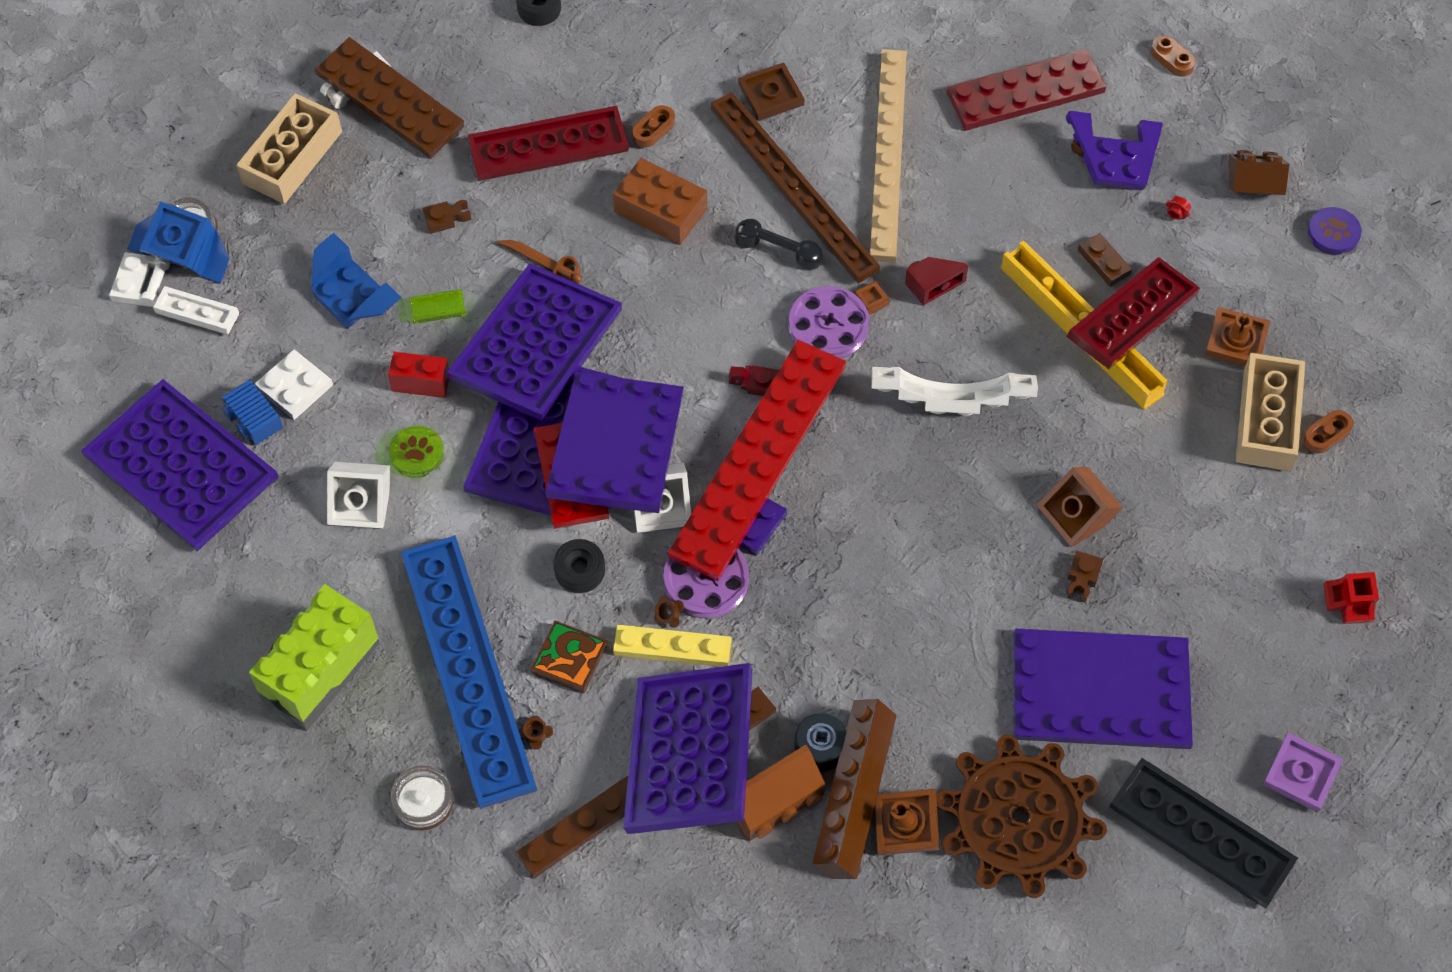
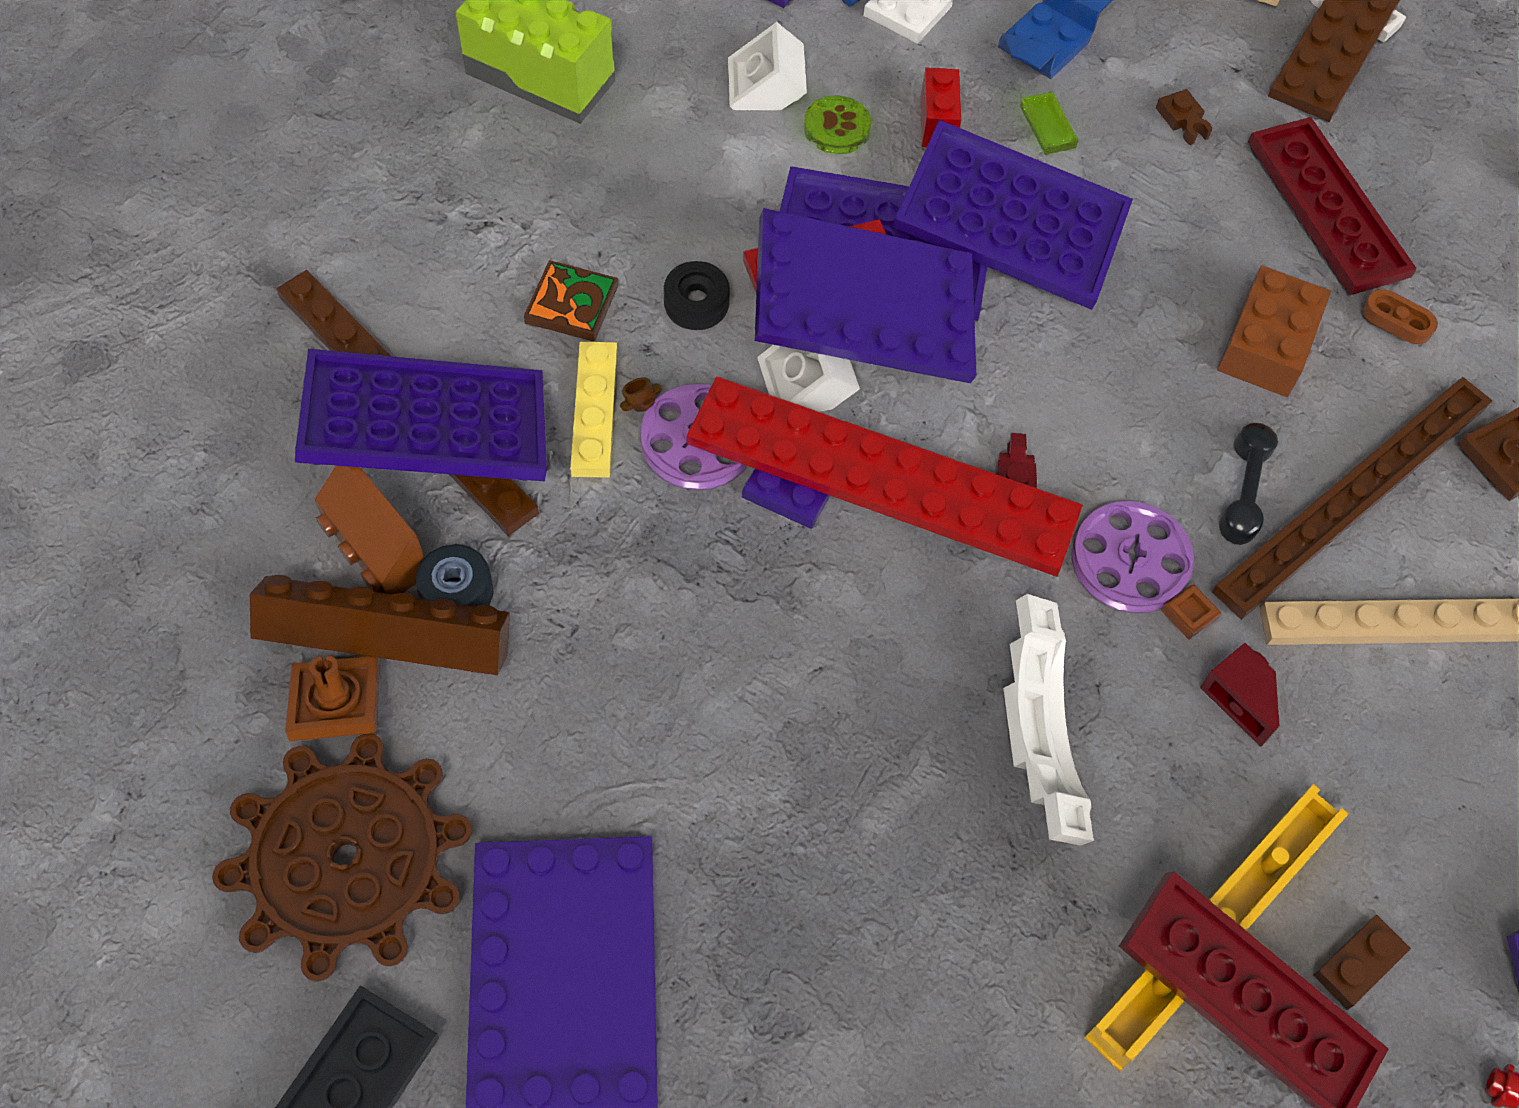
camera: 80 degrees right, 0 degrees up
(422, 797) = (372, 171): clear piece -> none
(468, 672) = (541, 201): blue plate -> none
(535, 723) = (465, 267): reddish brown plate -> none
(557, 268) = (1140, 233): dark orange sword -> none
(1079, 505) = (878, 927): dark orange slope -> none
(1083, 573) = (765, 942): reddish brown plate -> none

